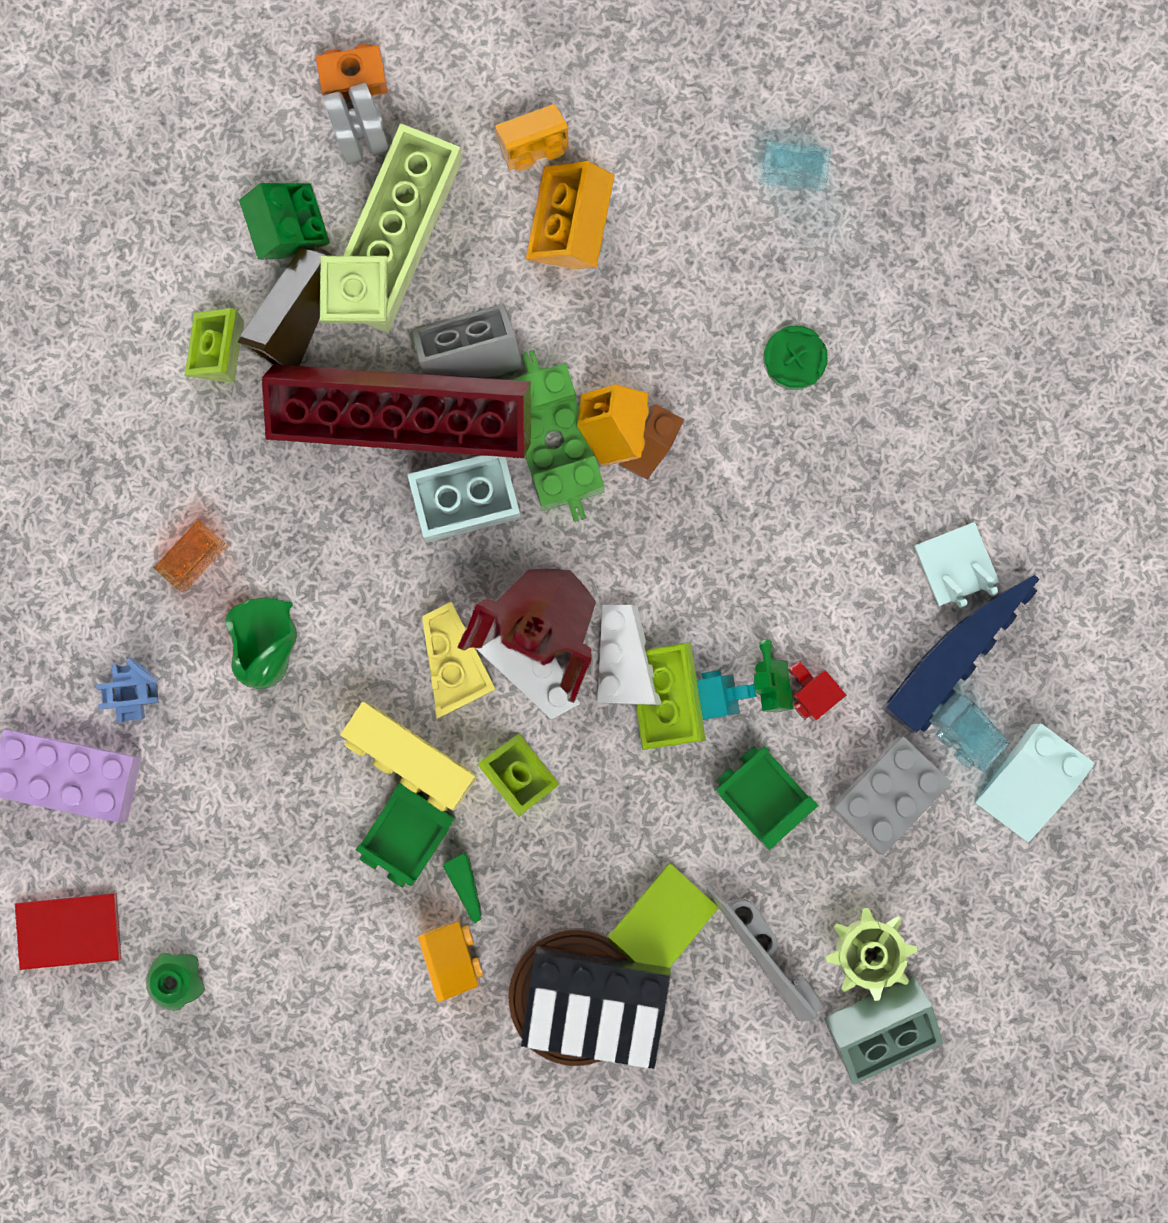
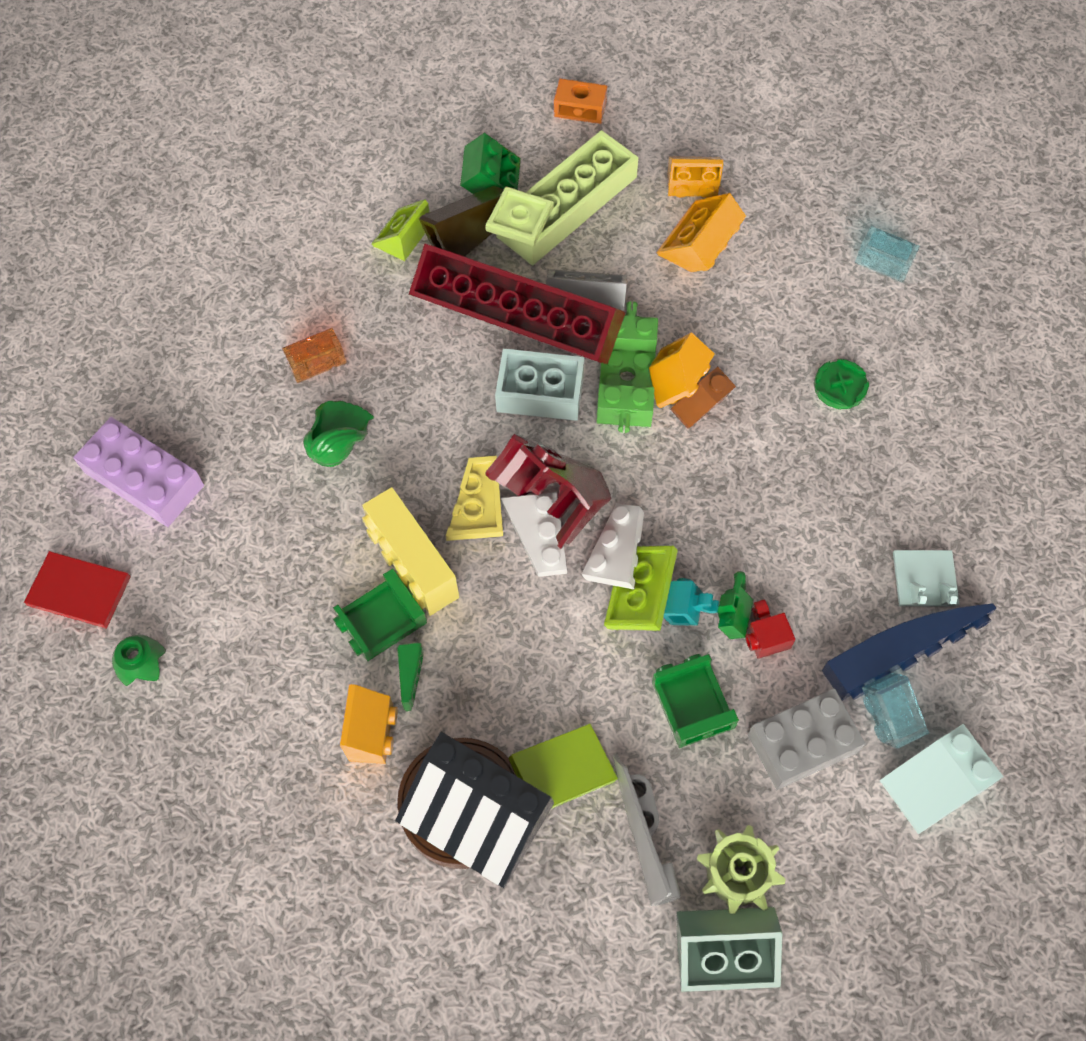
camera: 25 degrees right, 20 degrees down
(129, 698) = (220, 440): medium blue piece -> none
(356, 123) = (569, 123): light grey wheel -> none
(518, 774) = (491, 604): lime slope -> none

